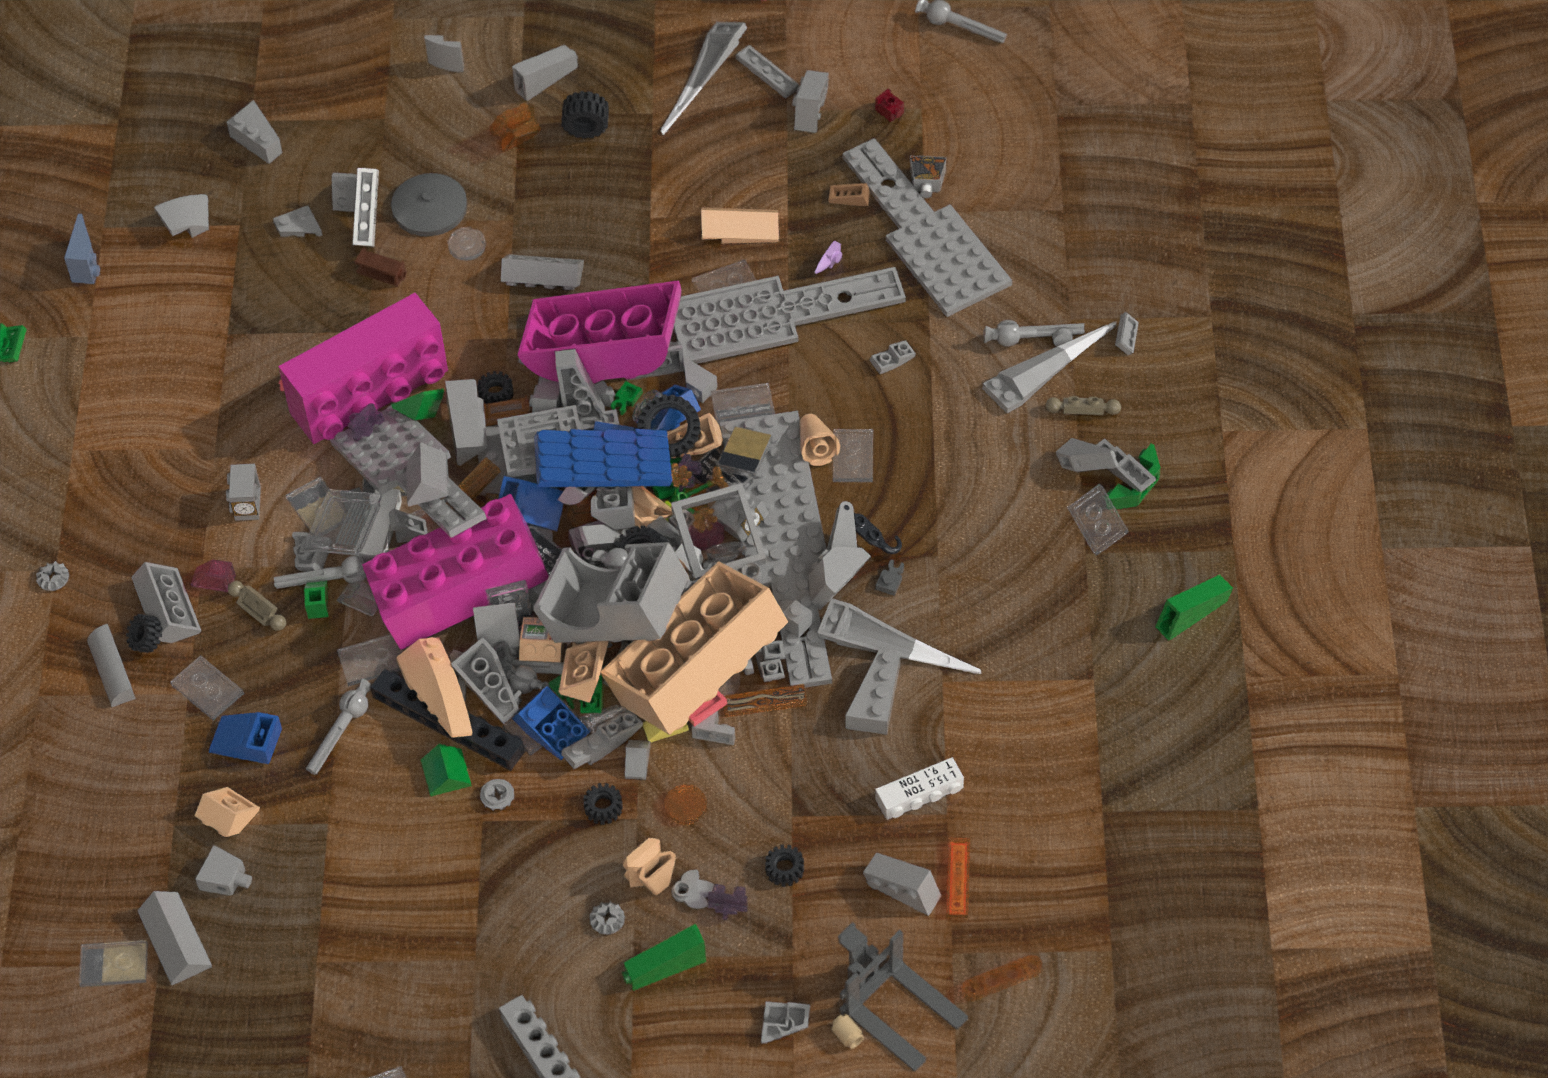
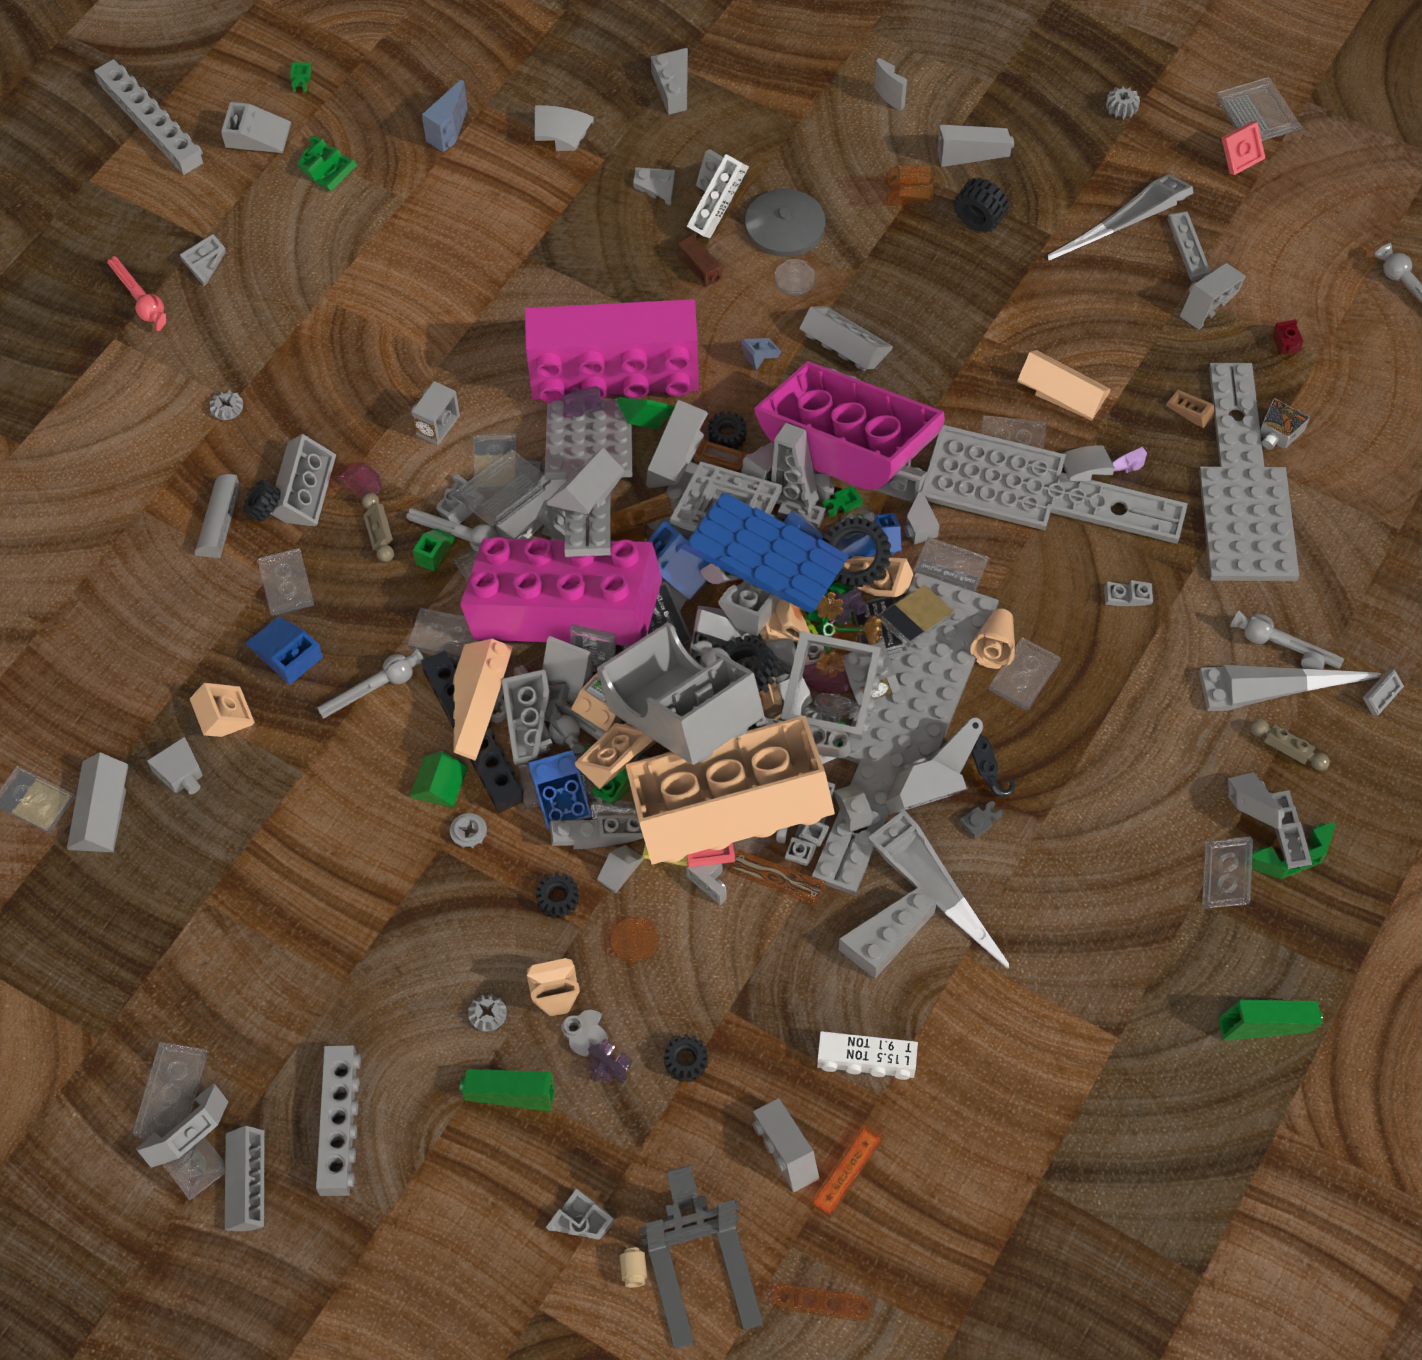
camera: 30 degrees right, 5 degrees up
(478, 314) = (759, 349): none -> sand blue slope
(798, 273) = (1085, 461): none -> light grey slope

